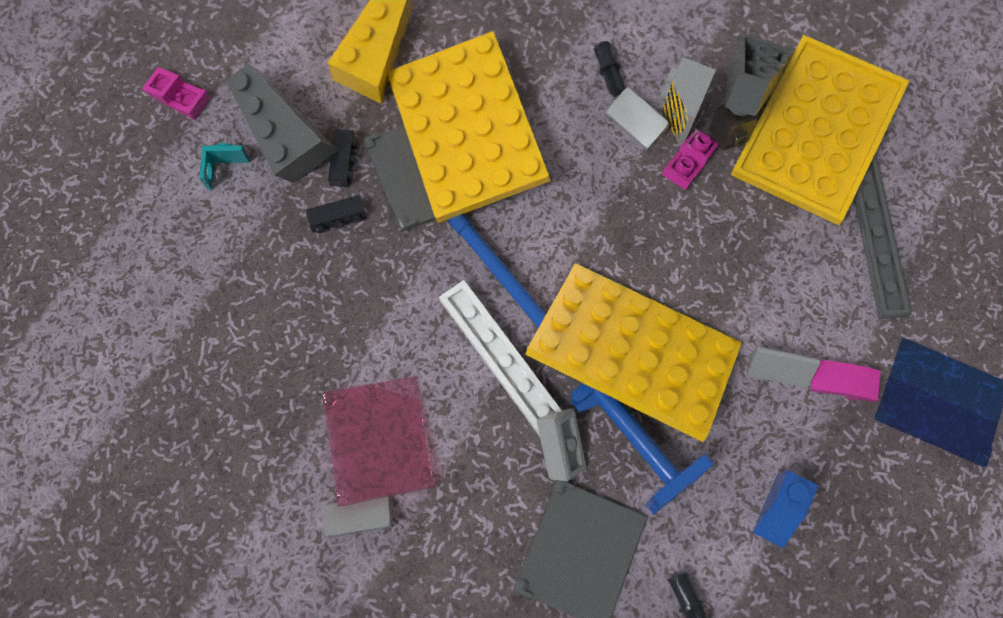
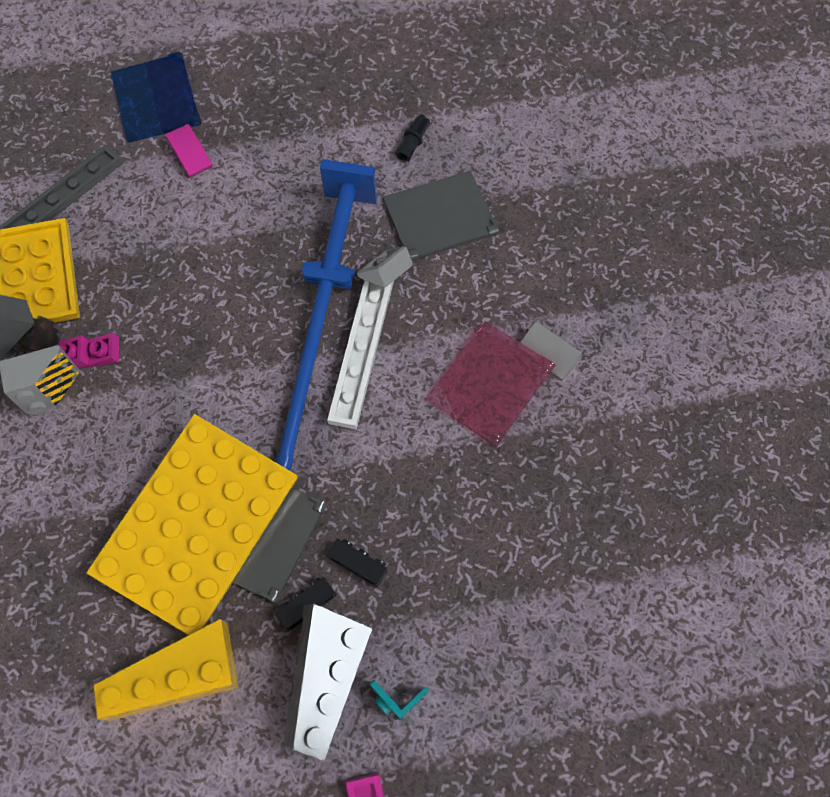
camera: 130 degrees left, 5 degrees down
(609, 68) = (47, 467): black axle -> none
(636, 351) = (280, 271): yellow plate -> none
(637, 118) = (80, 413): light grey slope -> none
(782, 366) = (211, 189): light grey slope -> none
(785, 508) = (306, 128): blue slope -> none

